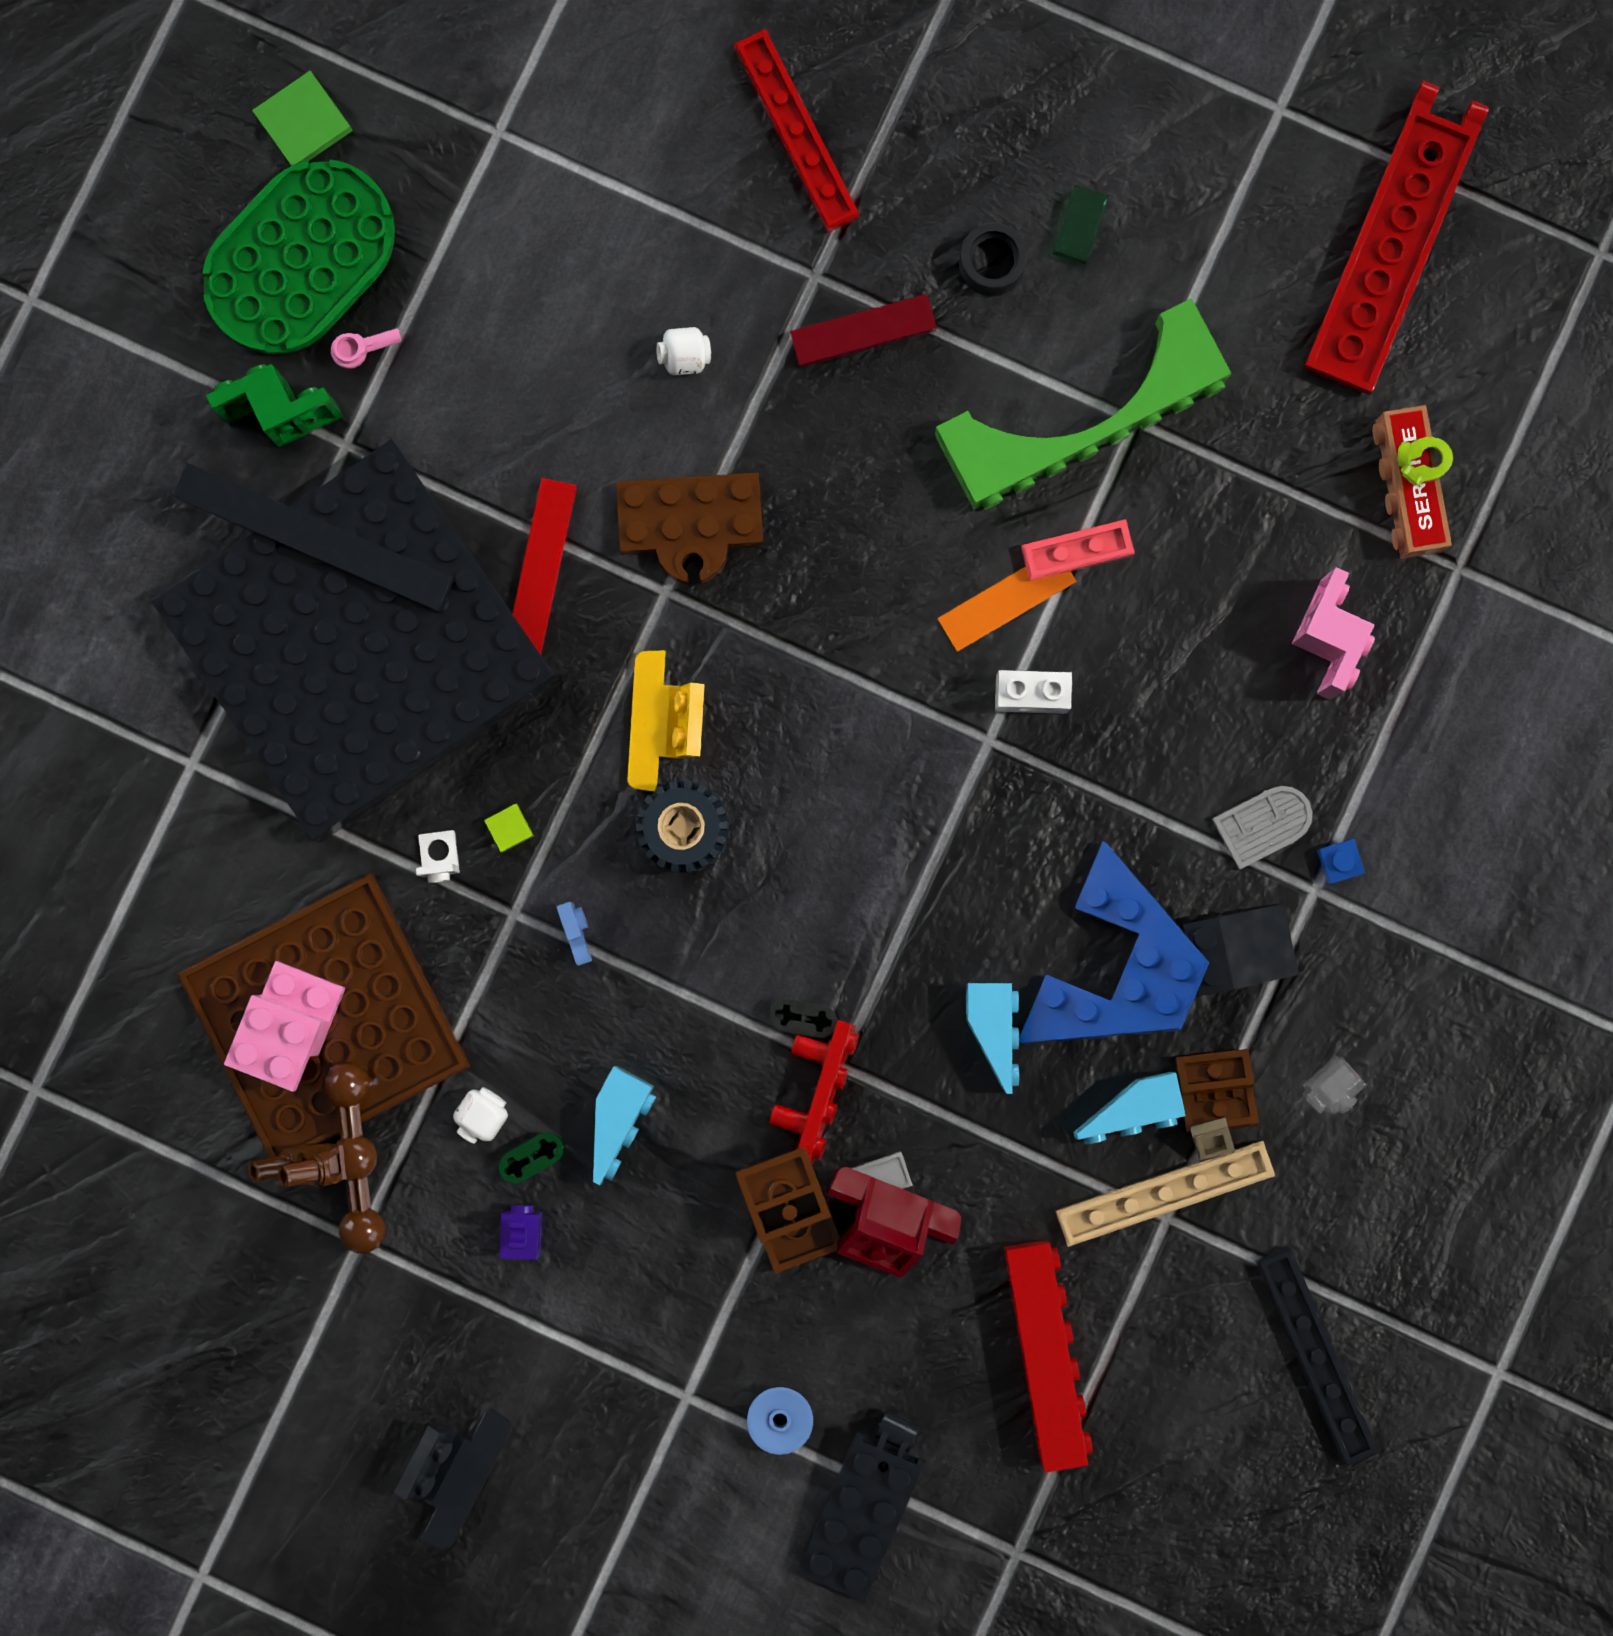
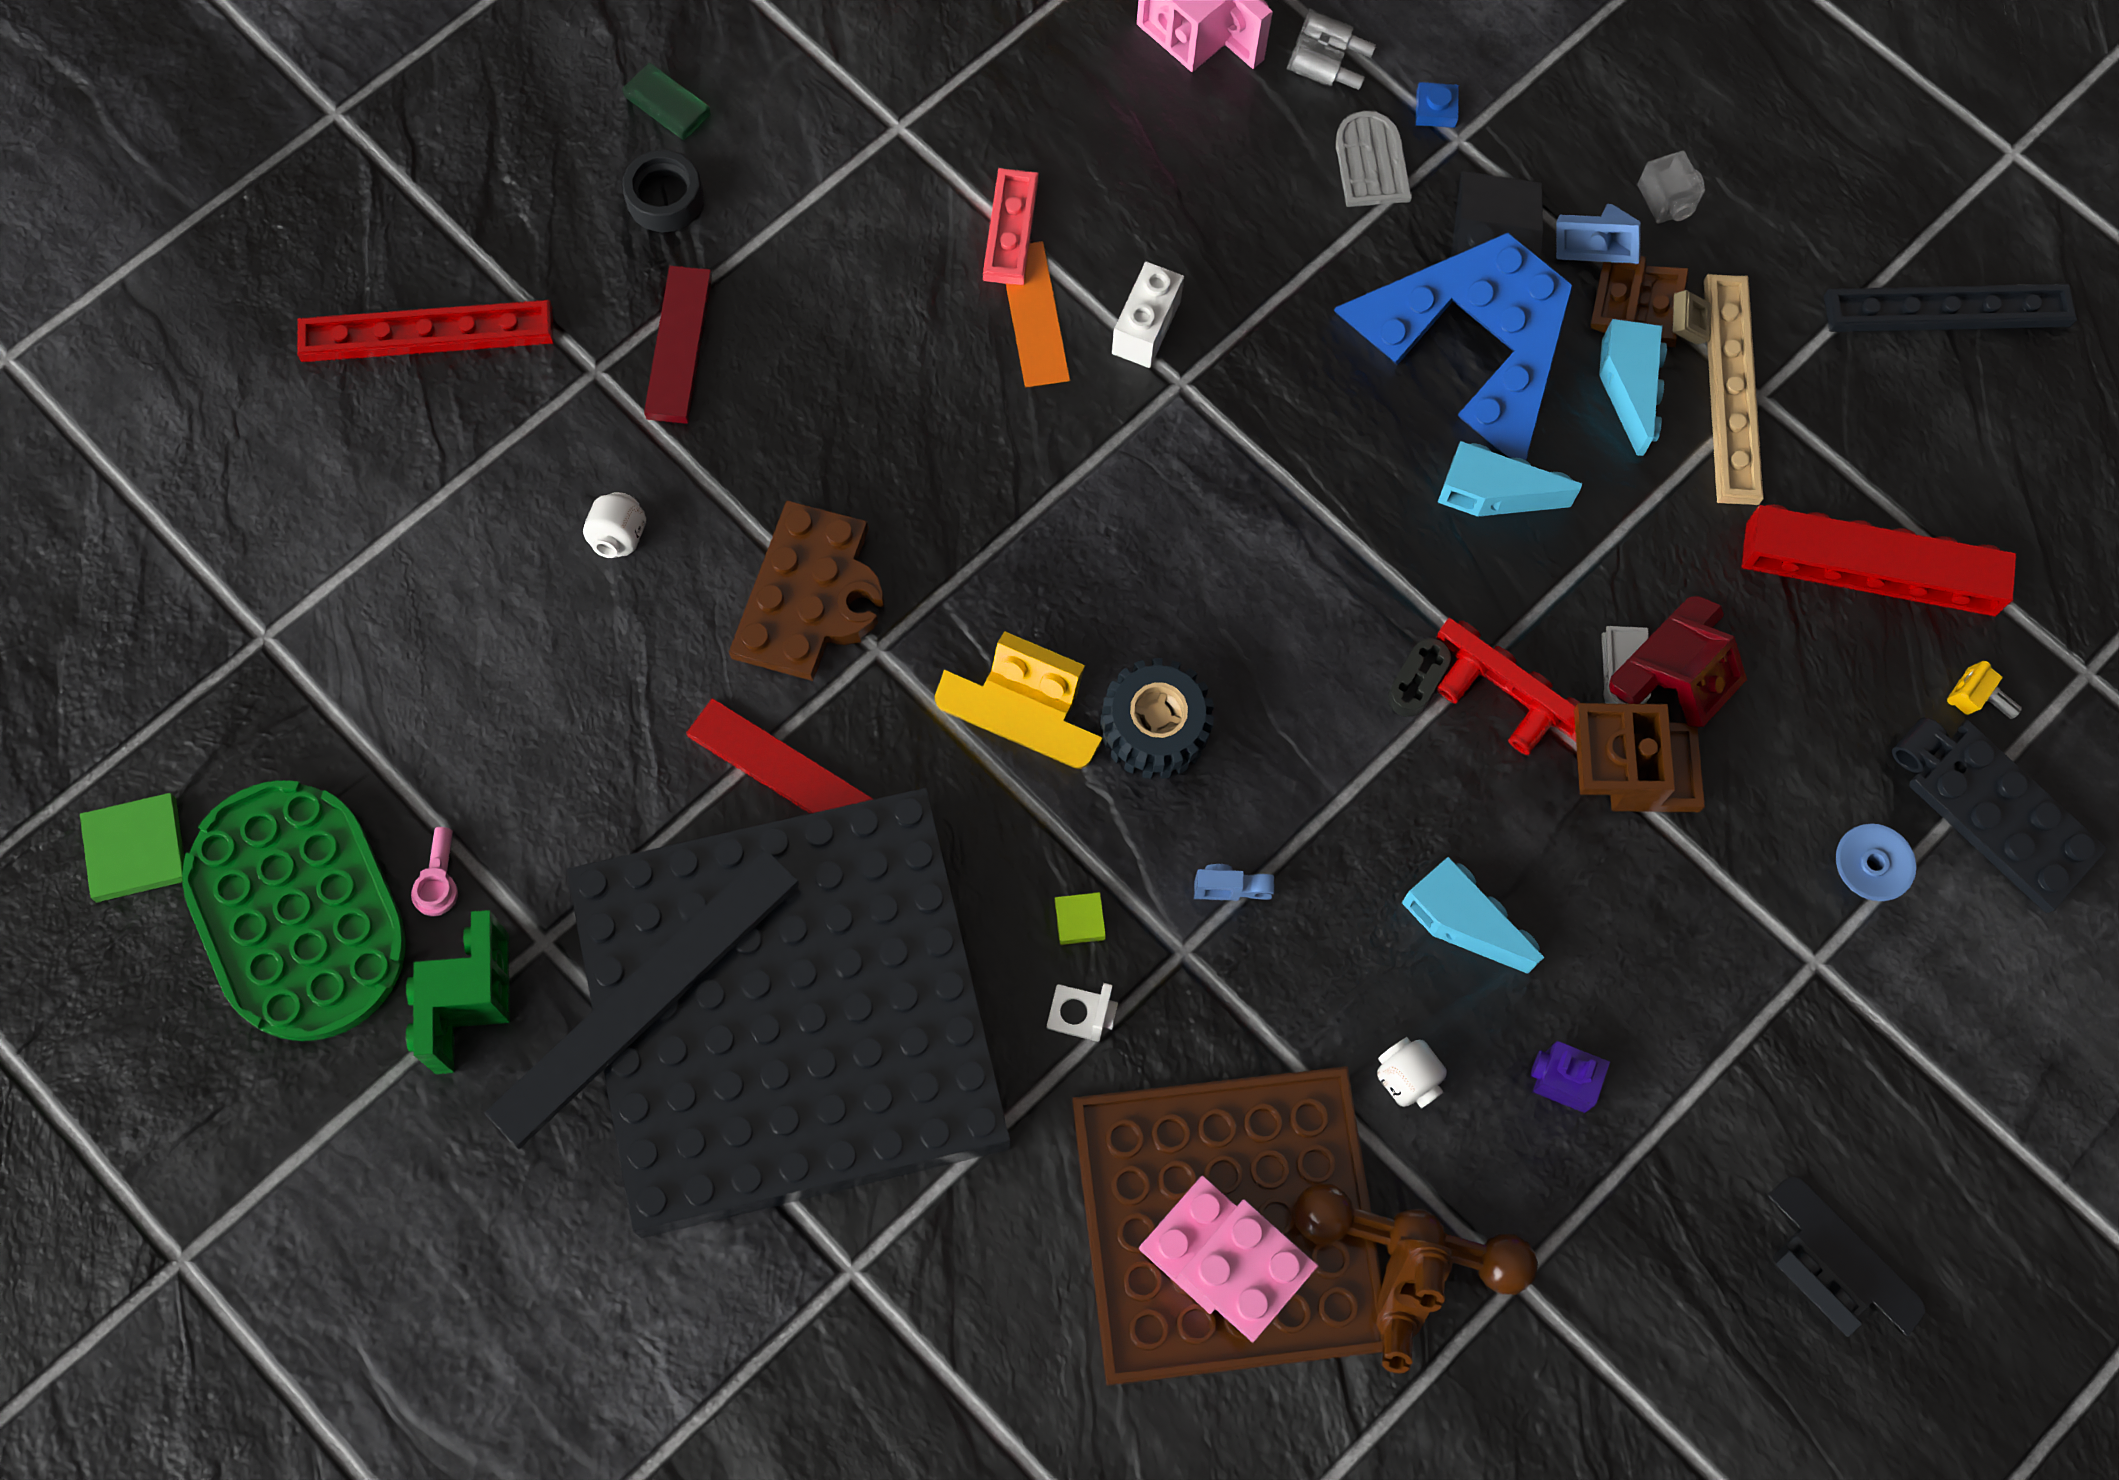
camera: 75 degrees left, 15 degrees down
(528, 1149) = (1490, 1032): dark green beam -> none
(966, 1465) = (1979, 686): none -> yellow piece
(997, 462) = (880, 266): bright green arch -> none
(1253, 1043) = (1601, 238): none -> medium blue slope
(1353, 744) = (1321, 50): none -> clear piece

